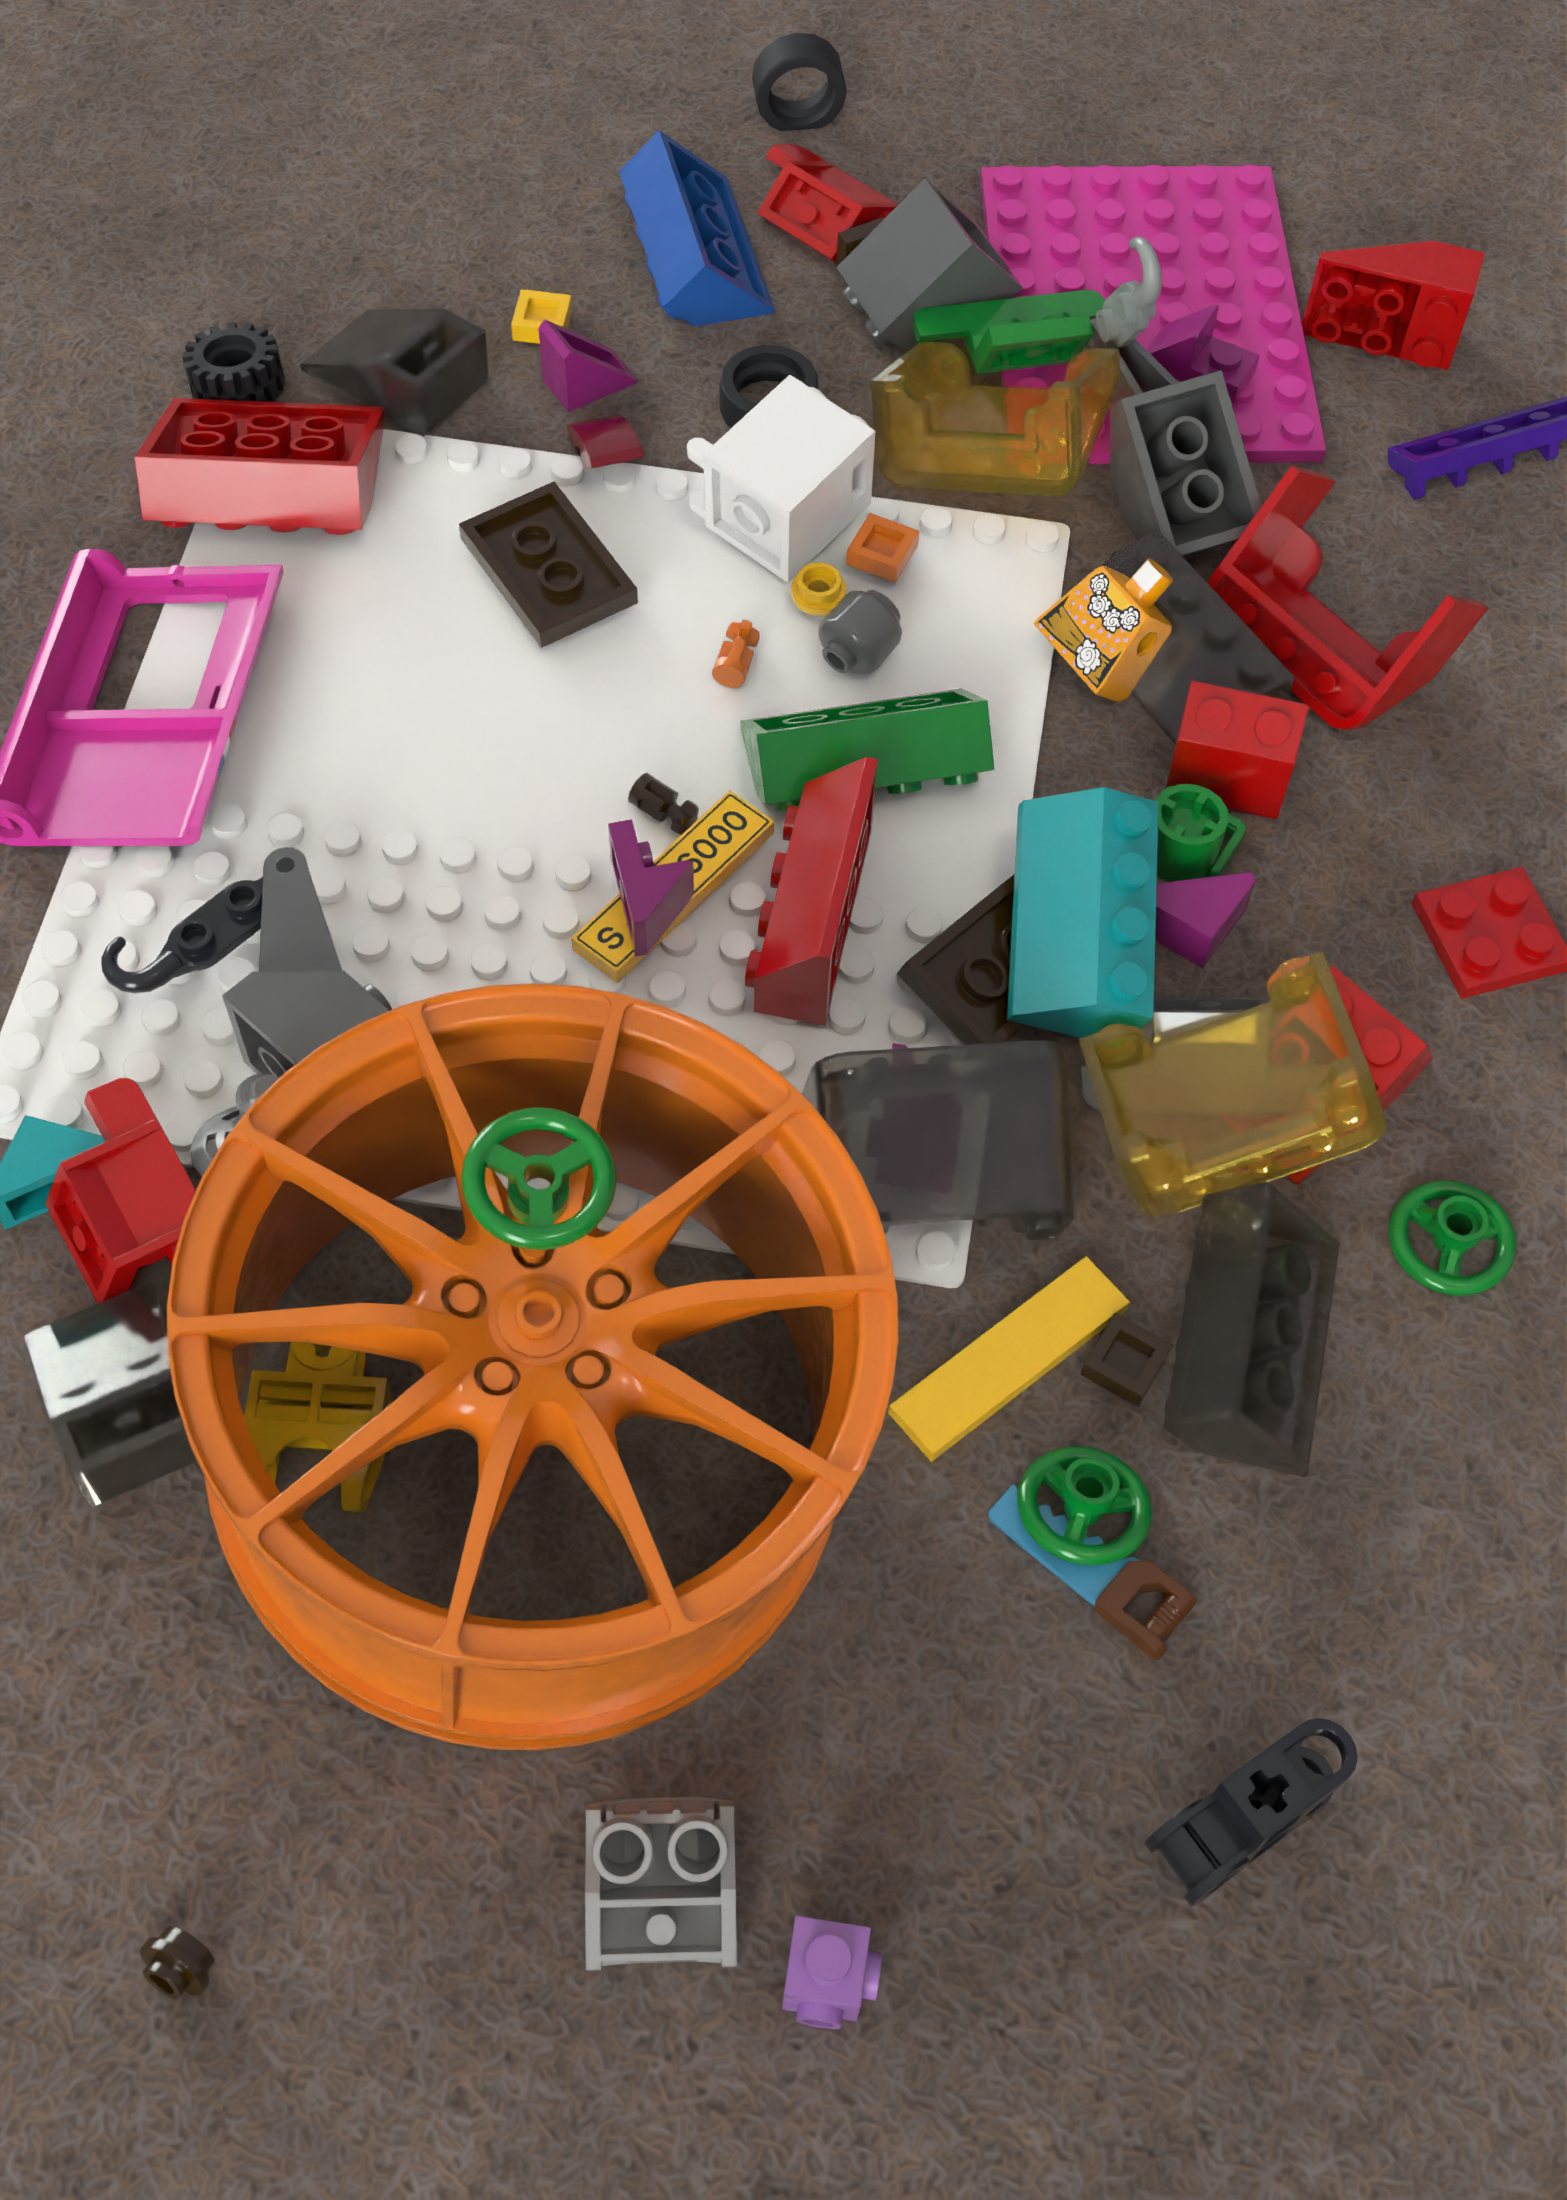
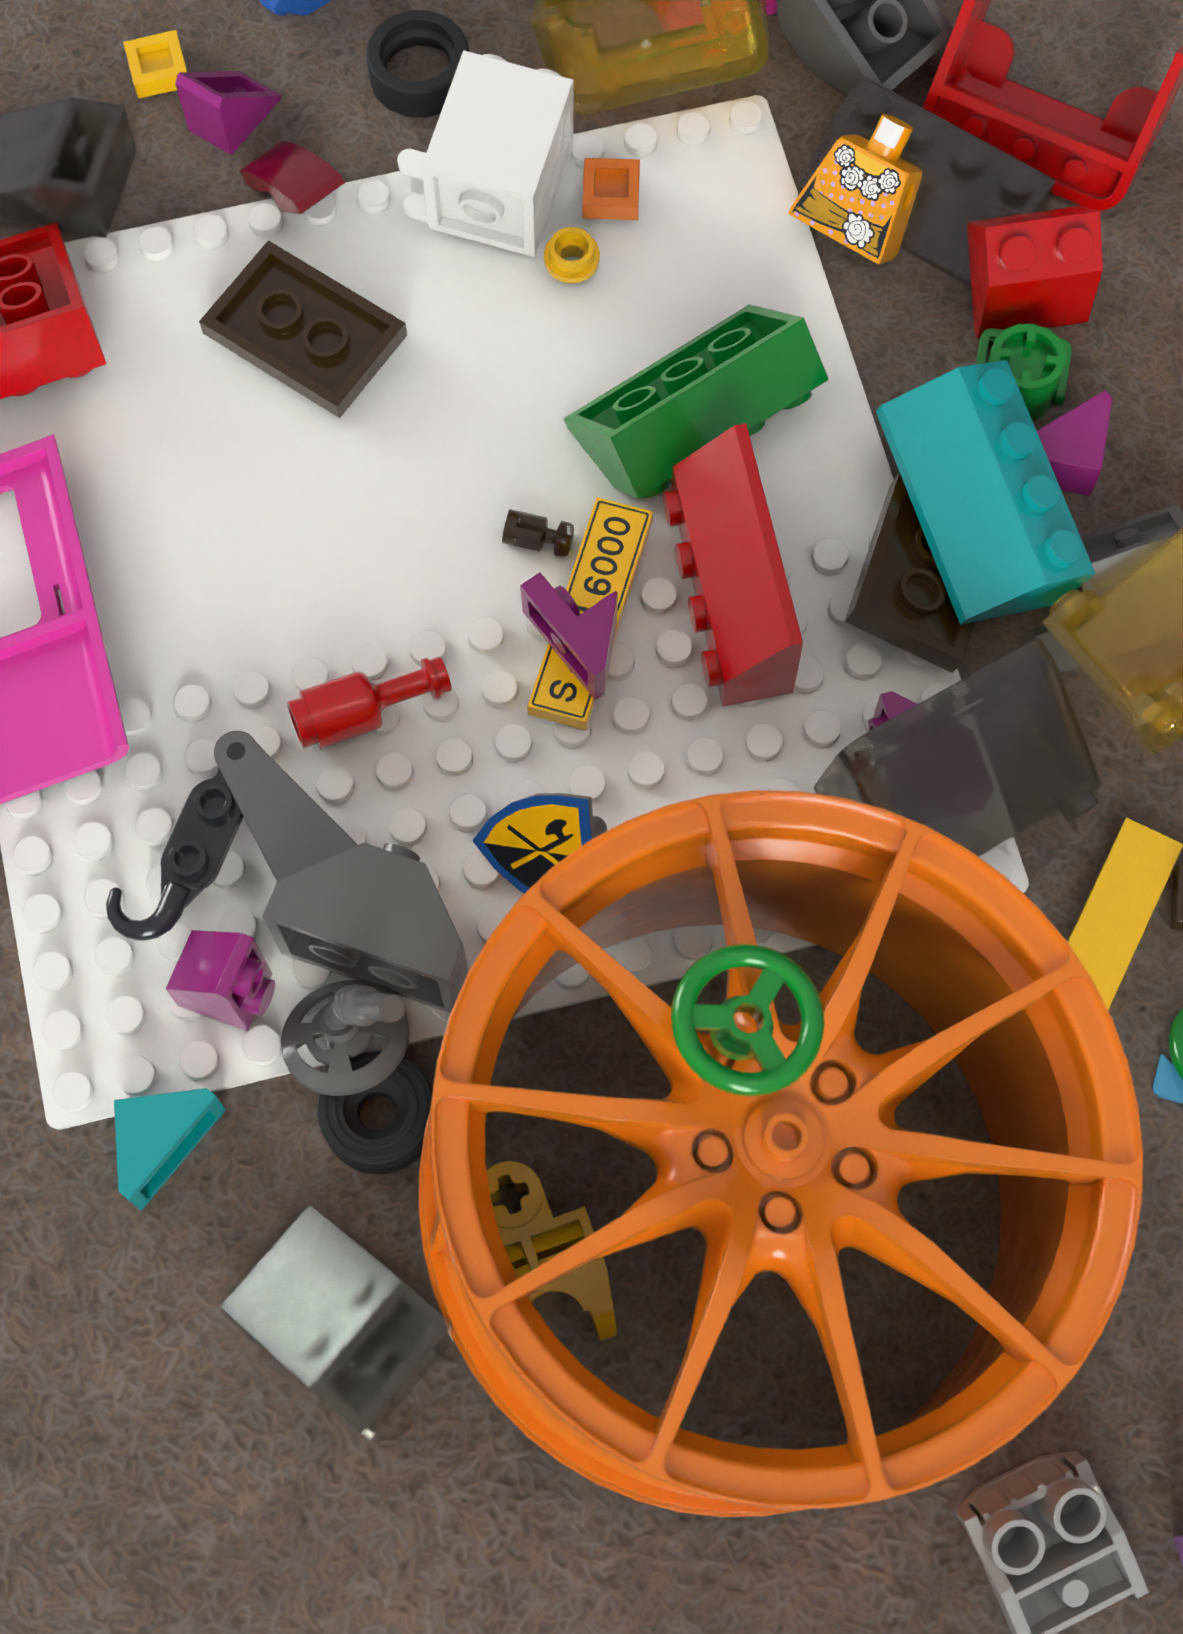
camera: 20 degrees left, 10 degrees up
(123, 1197) = (265, 1142): red plate -> none
(174, 1052) = (222, 978): none -> magenta slope
(418, 878) = (355, 705): none -> red piece
(734, 657) = (527, 354): orange piece -> none
(860, 632) = (636, 286): dark grey head -> none

